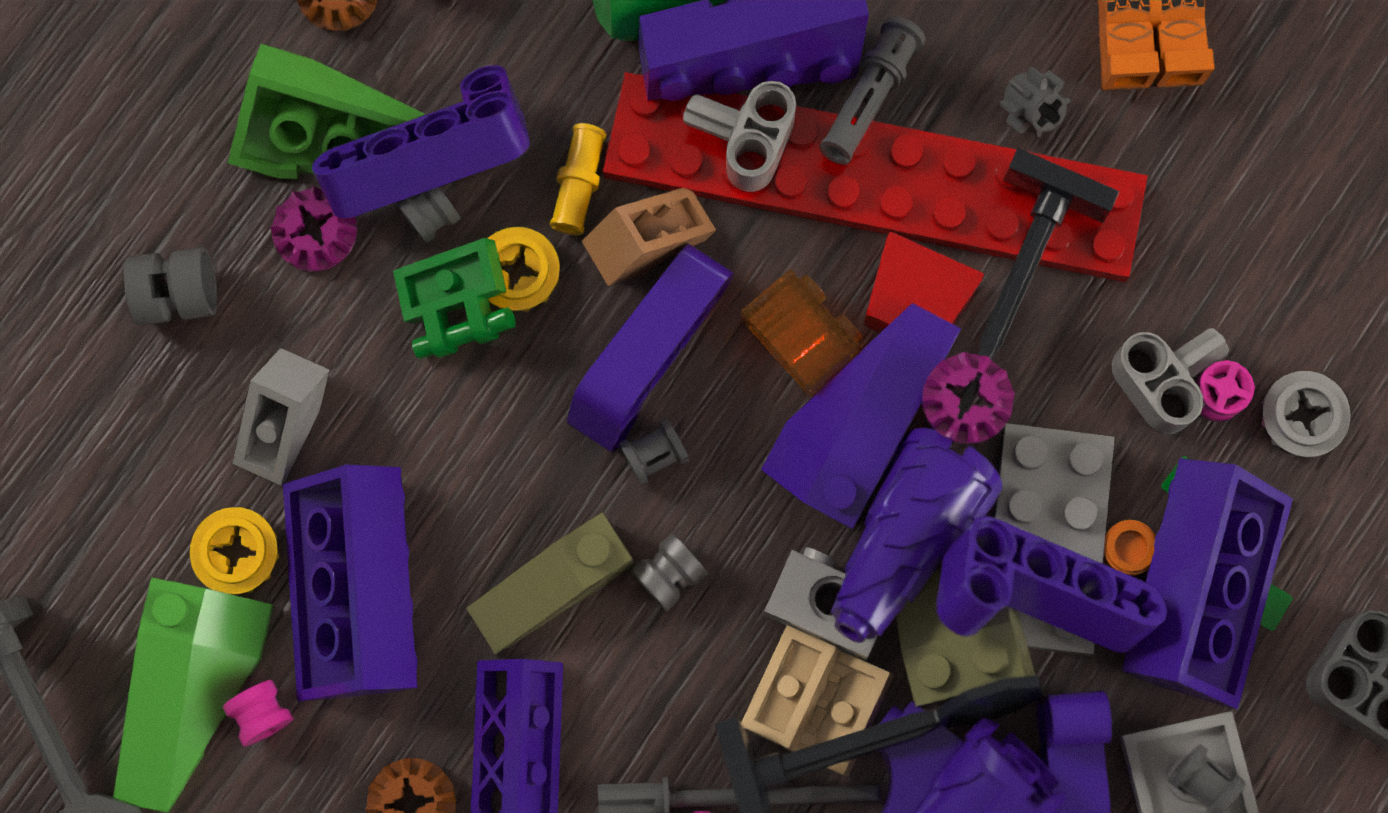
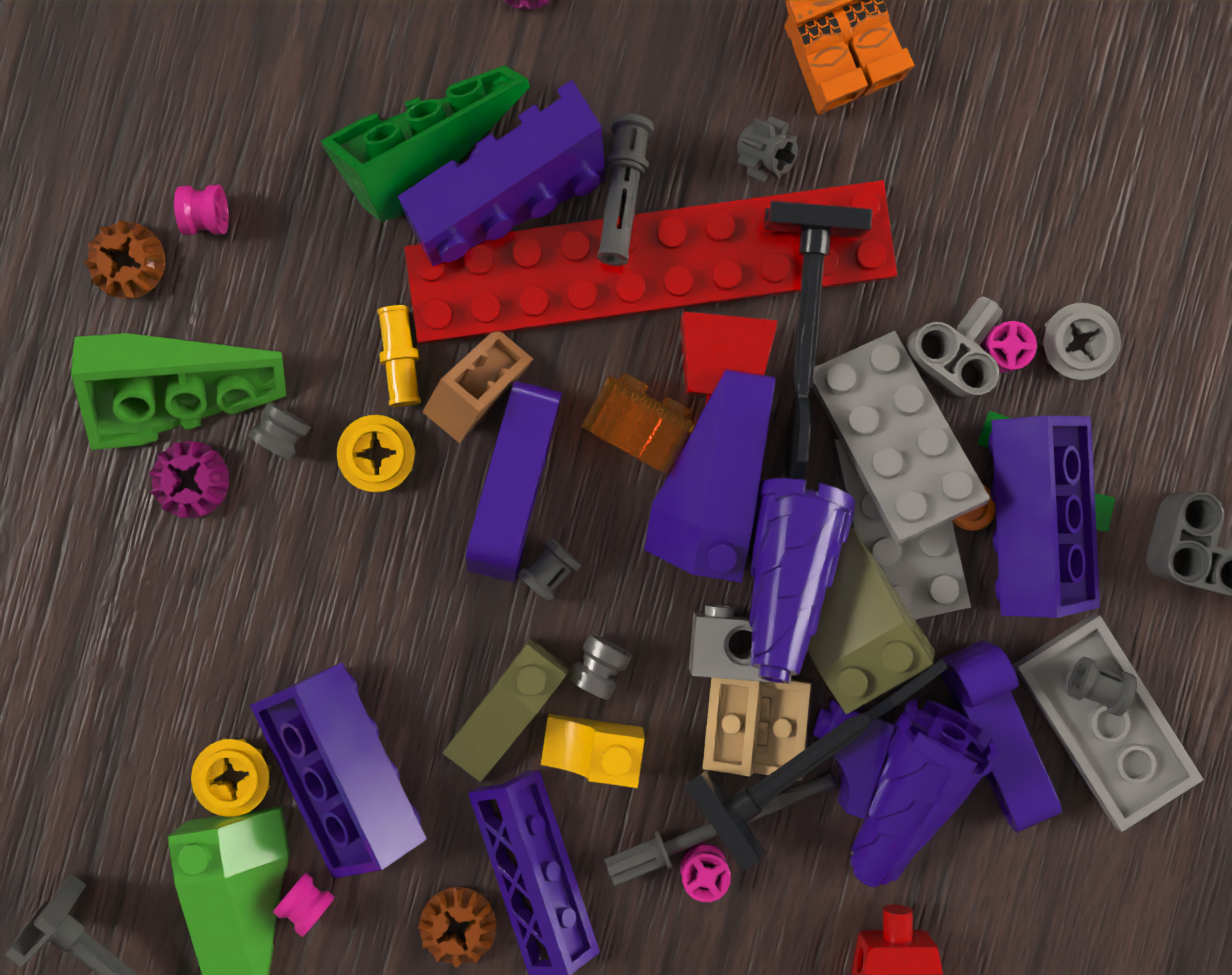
camera: 25 degrees left, 10 degrees up
(189, 285) = (77, 581): dark grey wheel -> none
(279, 415) = (222, 651): light grey slope -> none
(427, 150) = (260, 381): dark purple beam -> none
(450, 282) = (322, 488): green plate -> none
(630, 658) = (594, 749): none -> yellow arch
(747, 130) = (527, 265): light grey beam -> none
(979, 422) = (788, 460): magenta gear -> none
(1013, 568) = (886, 578): dark purple beam -> none
(1072, 440) = (897, 438): none -> light grey plate

